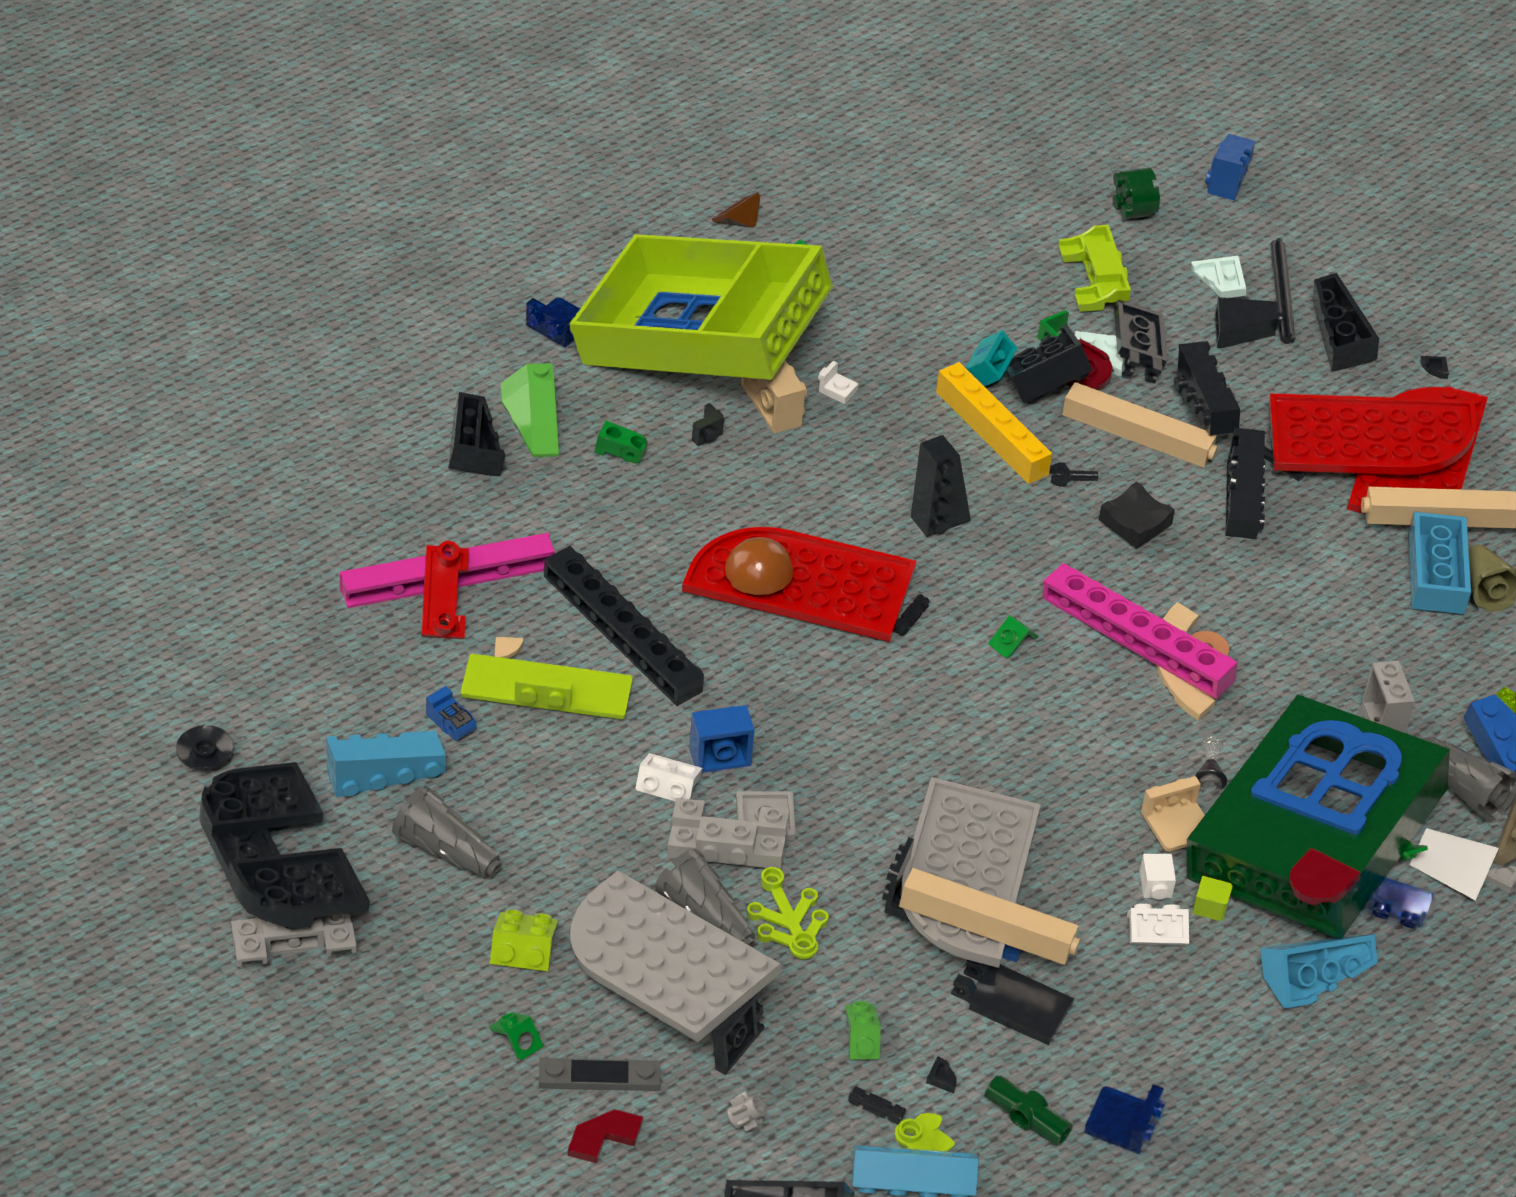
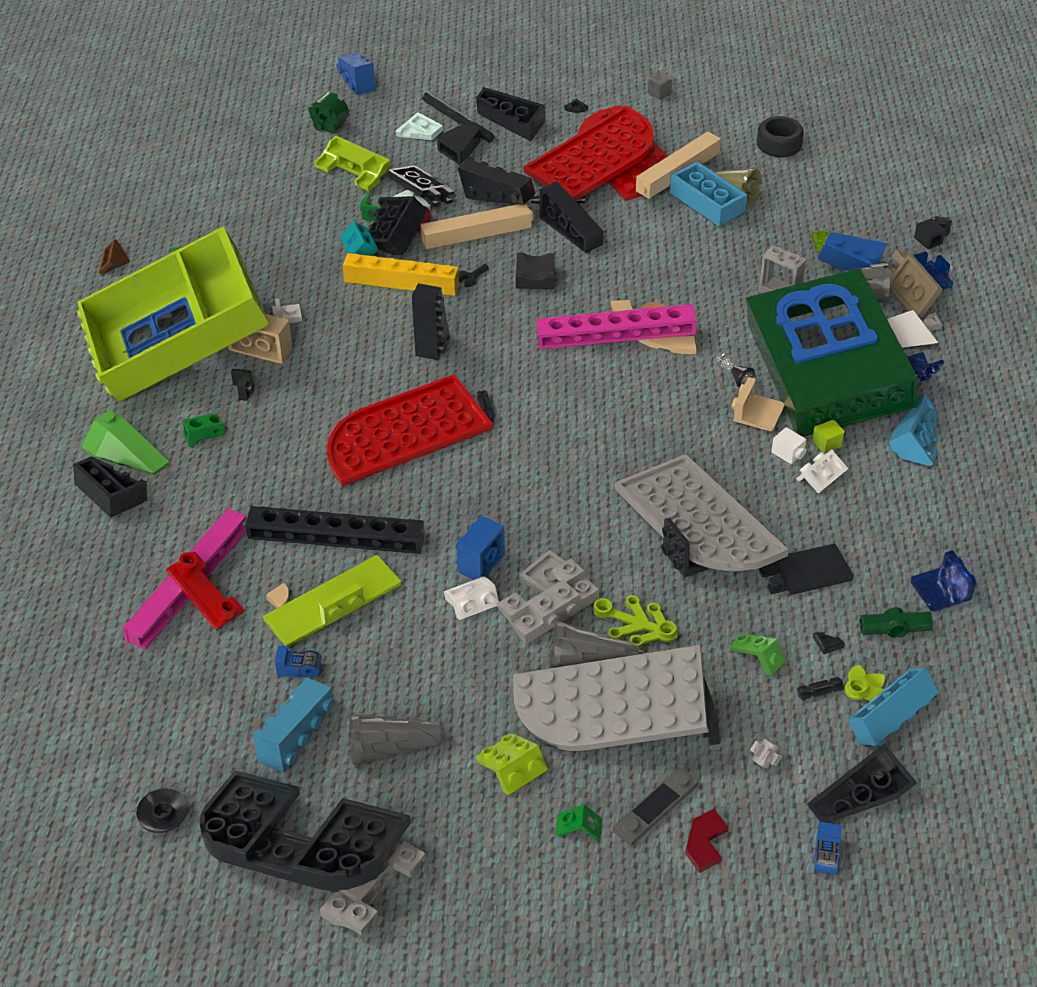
camera: 40 degrees left, 0 degrees up
(552, 319) = (75, 386): clear blue bracket -> none
(759, 566) = (376, 437): dark orange cylinder -> none
(989, 916) = (756, 529): tan brick -> none
(1010, 636) = (553, 379): green bracket -> none
(1321, 878) = (895, 375): dark red tile -> none

